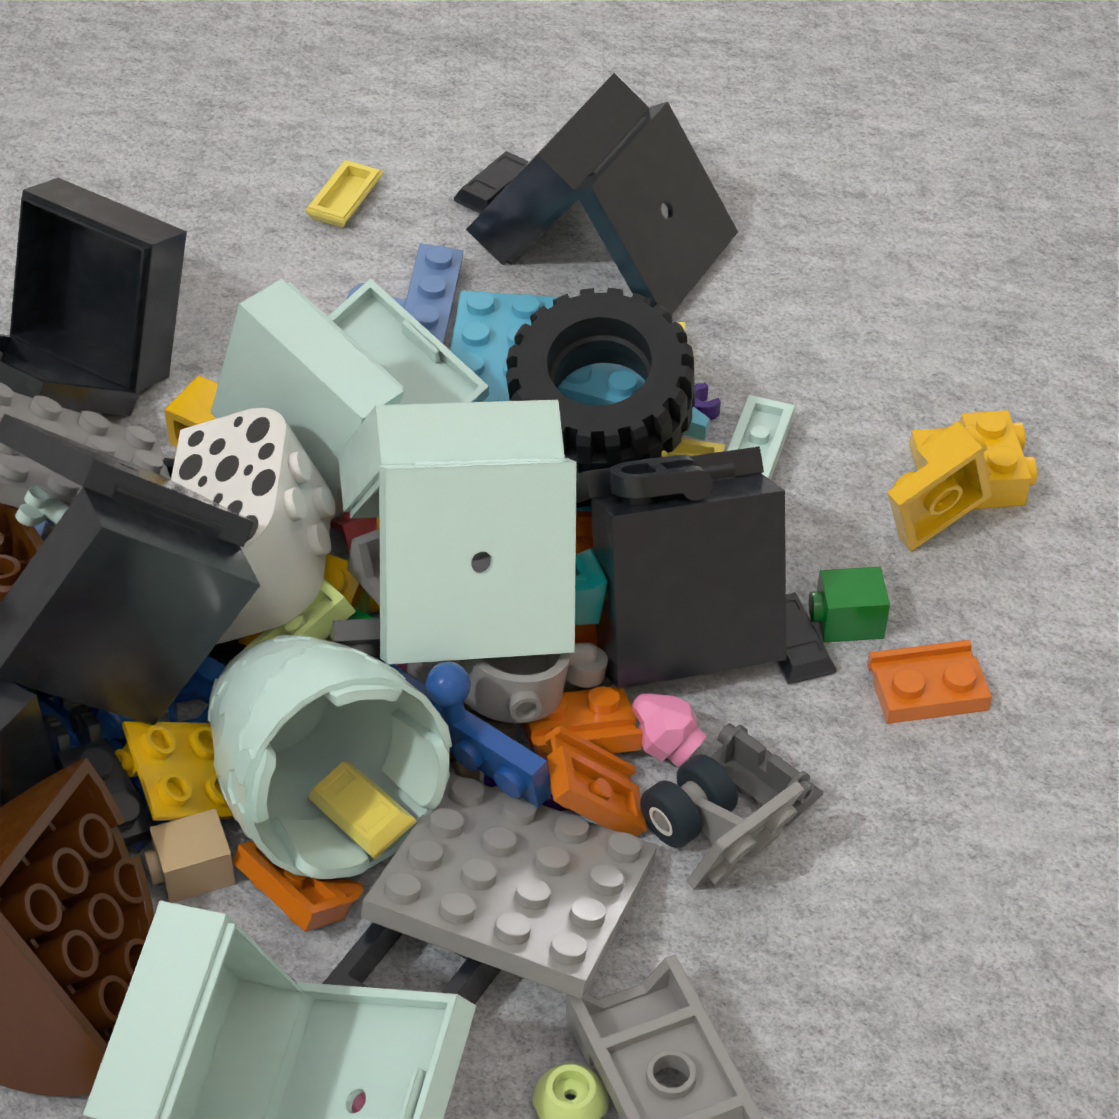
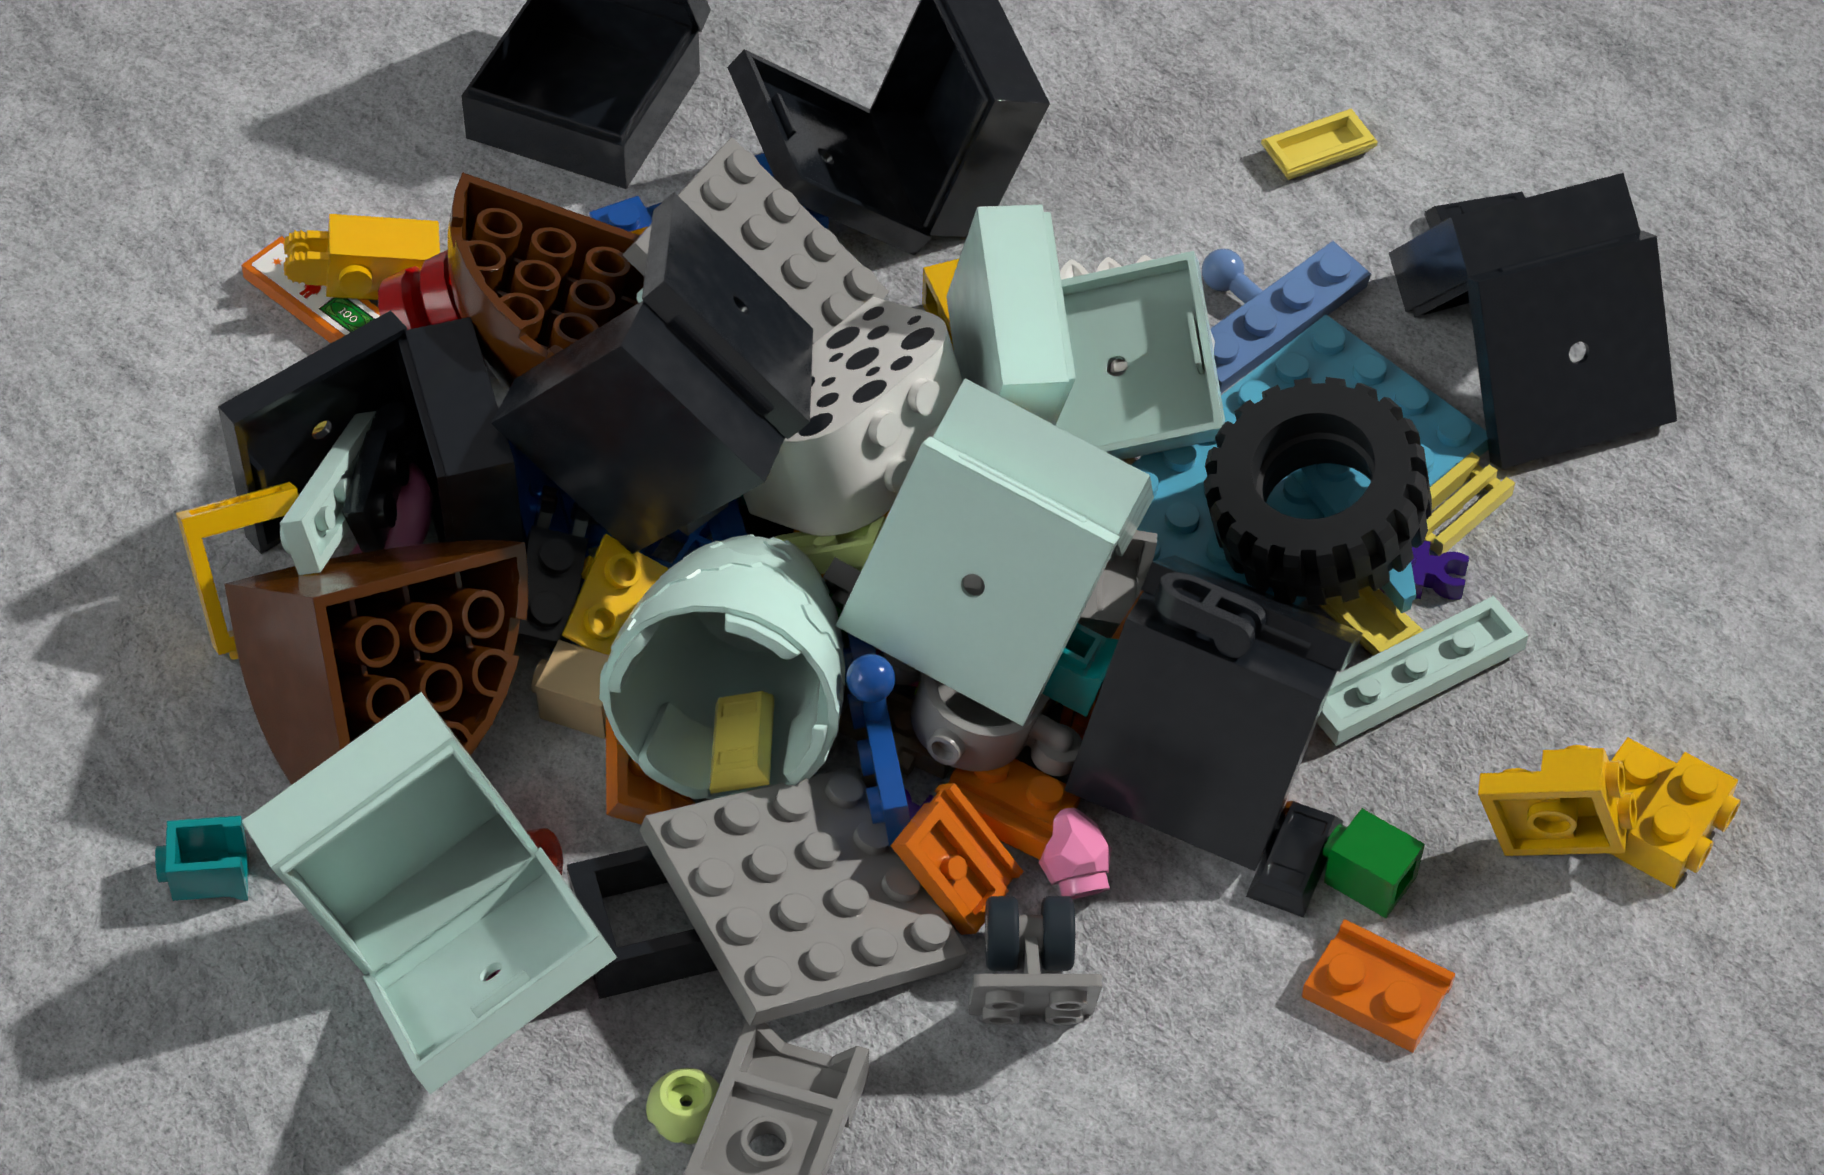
camera: 40 degrees right, 5 degrees up
(760, 772) = (1127, 958): dark grey hinge -> none

